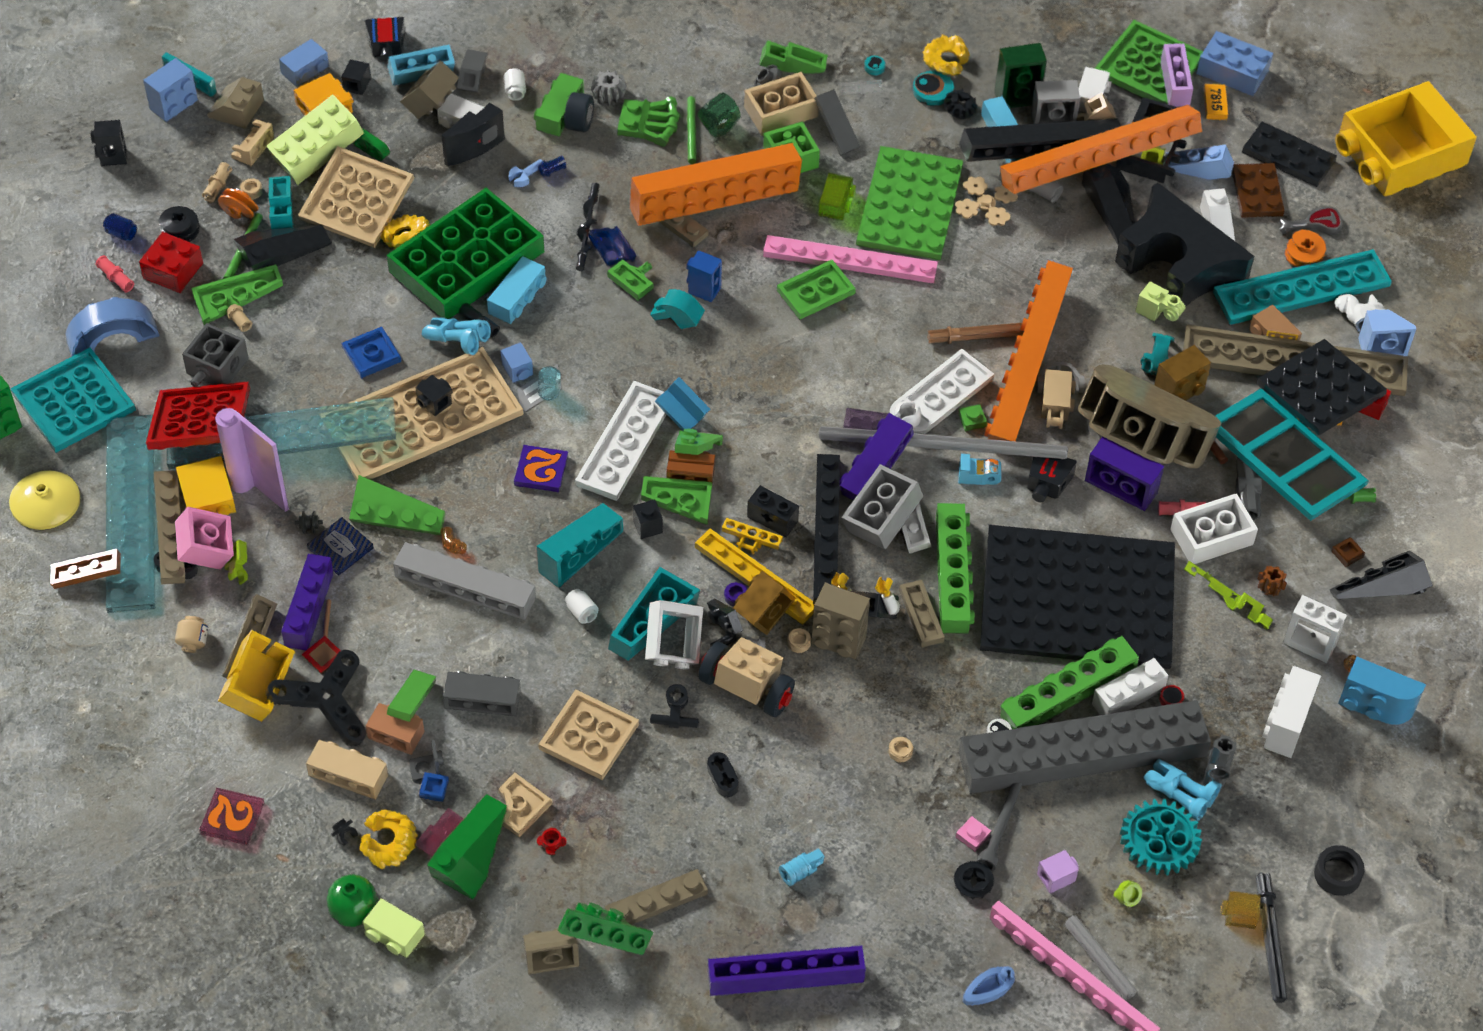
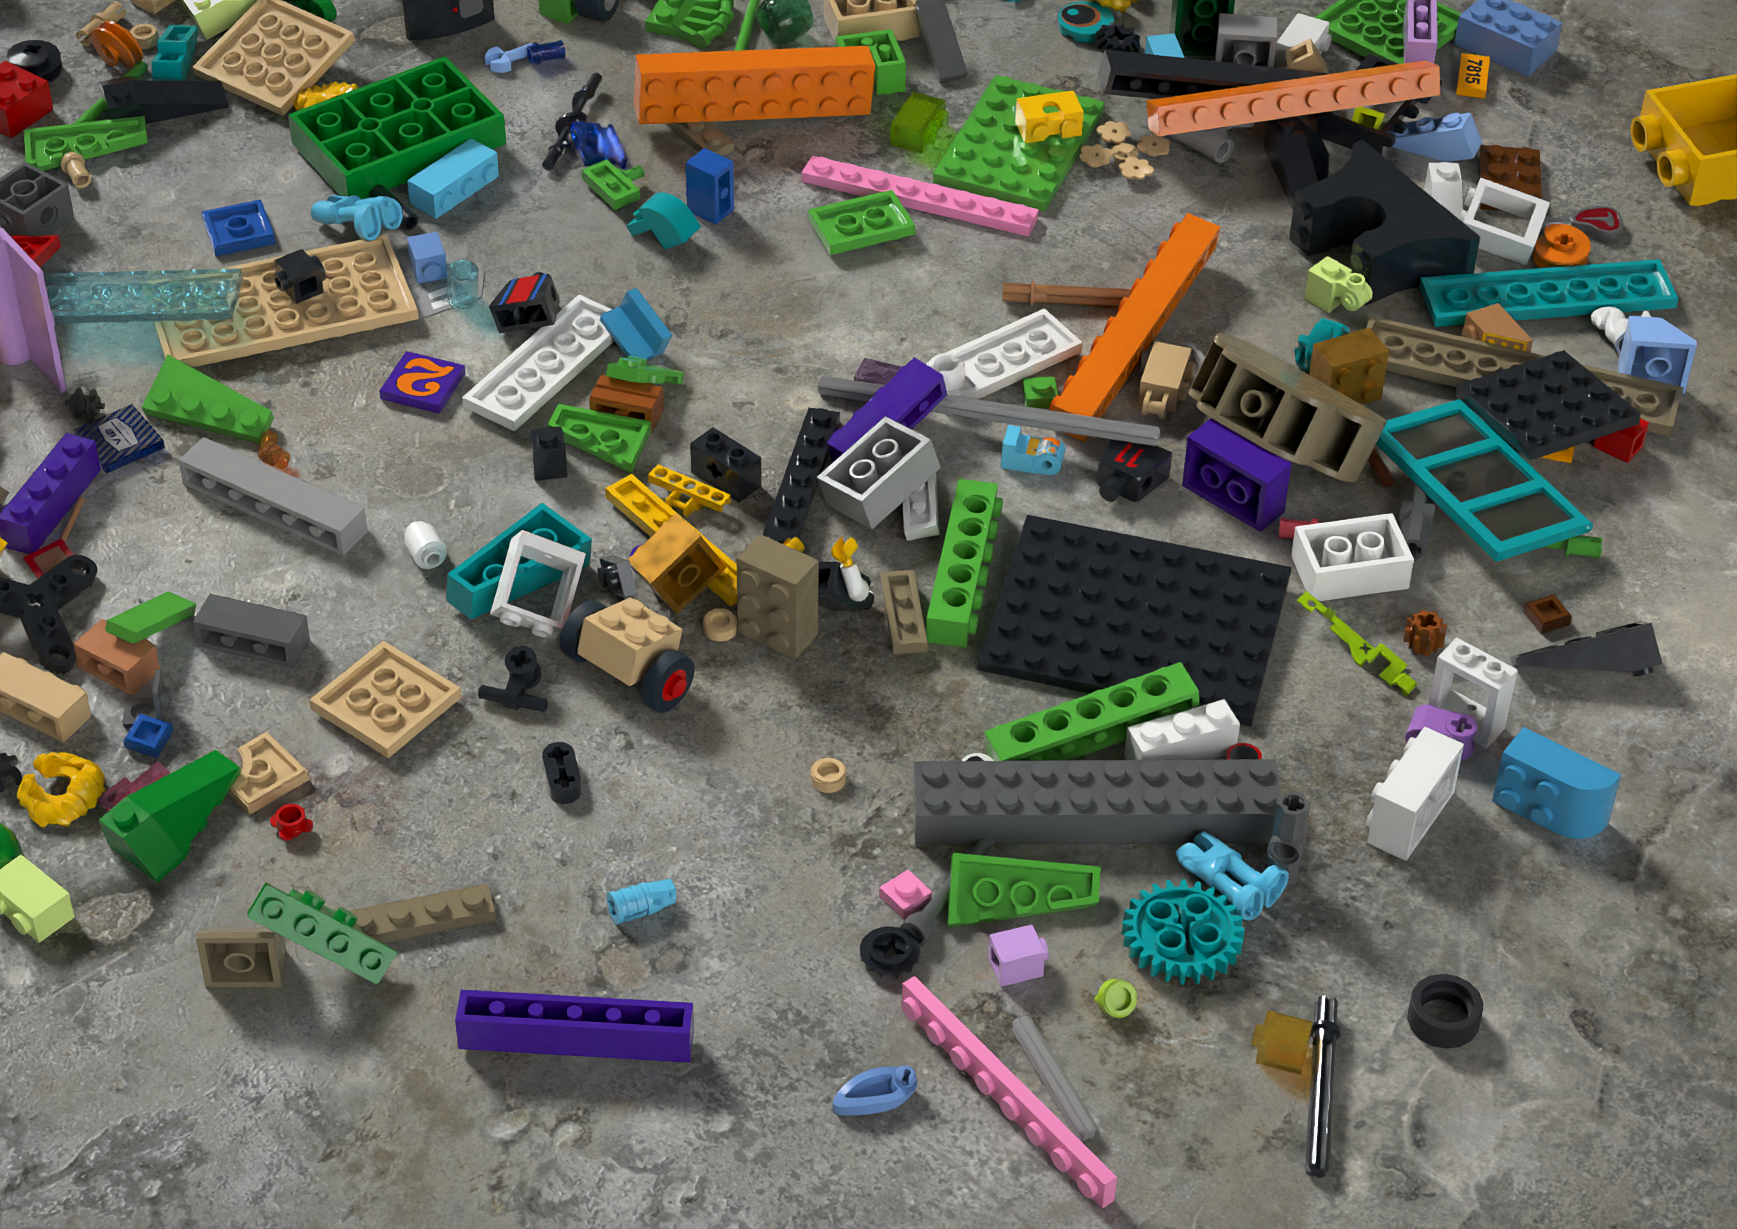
camera: 10 degrees right, 10 degrees down
(578, 544) = (440, 469): teal wedge -> none
(600, 394) = (526, 303): none -> black torso
(925, 189) = (1037, 125): none -> yellow brick
(1041, 821) = (1011, 888): none -> bright green wing
(1261, 249) = (1512, 201): none -> white window
(1289, 154) = (1564, 143): black plate -> none
(1298, 655) = (1445, 723): none -> medium lavender piece

